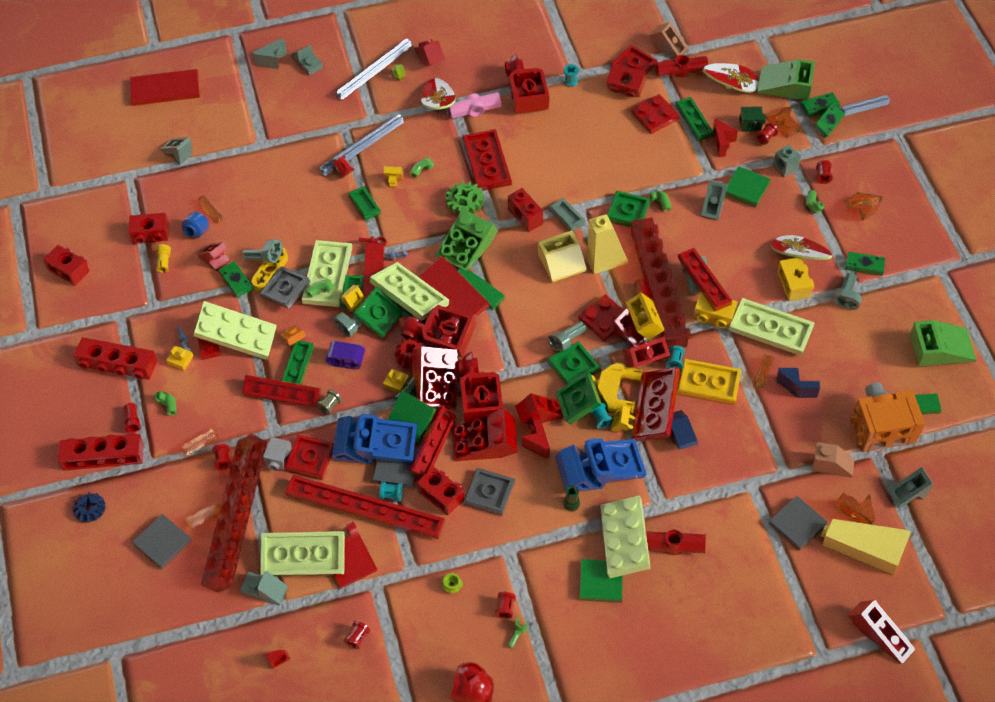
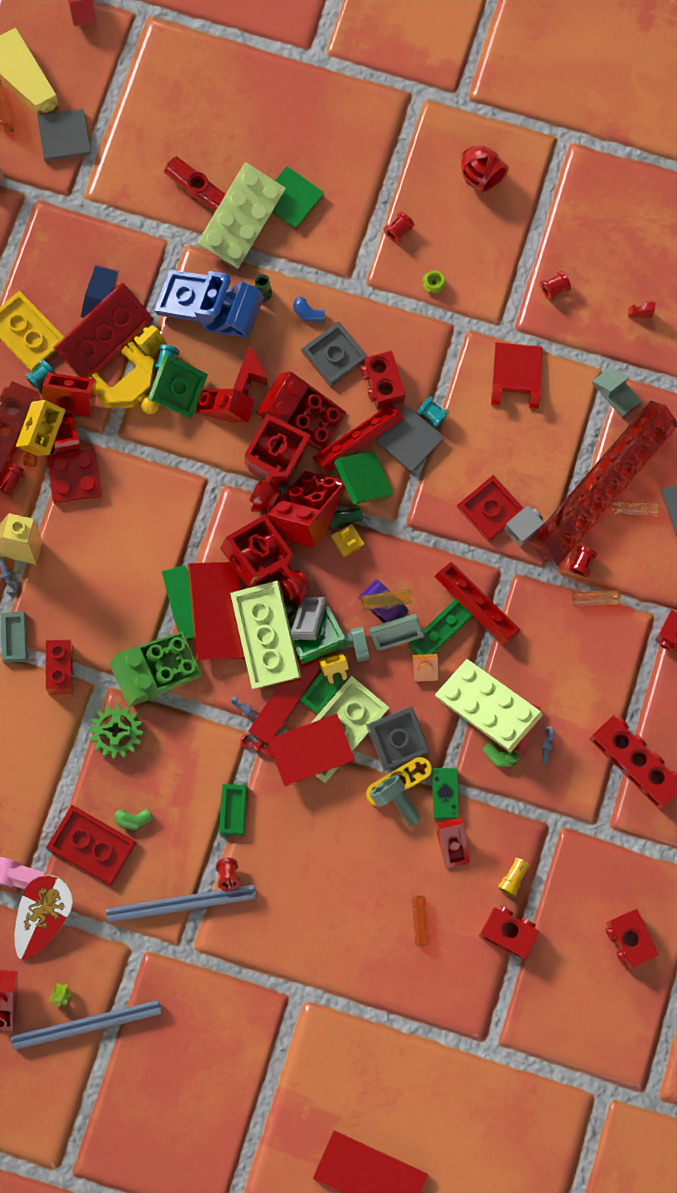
camera: 155 degrees left, 20 degrees up
(132, 422) = (656, 667): red pin -> none
(168, 401) = (603, 671): bright green arm -> none
(179, 147) = (411, 1044): sand green slope -> none
(179, 358) = (563, 722): yellow tile -> none
(195, 225) = (452, 900): blue head -> none
(268, 55) = (212, 1137): sand green slope -> none
(302, 553) = (562, 393): yellowish green plate -> none
(307, 60) = (161, 1103): sand green slope -> none
(317, 286) = (360, 706): bright green arm -> none
(324, 340) = (396, 632): none -> sand green tile
(329, 402) = (435, 556): olive bush -> none
(335, 248) = (310, 750): none -> red tile
(342, 347) = (386, 599): none -> clear yellow pin
(365, 506) = (470, 413): red plate -> none
(373, 438) = (419, 472): blue piece -> none
(387, 315) = (309, 618): none -> light grey tile
(393, 175) = (175, 824): yellow tile -> none
(404, 352) = (321, 564): red gear -> none
(436, 144) = (91, 845): none -> red tile
(487, 160) = (48, 780): red tile -> none
(518, 630) = (402, 199): bright green hand -> none
(527, 505) = (306, 313): none -> blue arm
(561, 256) = (66, 574): light yellow slope -> none
(561, 340) = (143, 475): sand green piece -> none
(573, 363) = (148, 440): green tile -> none

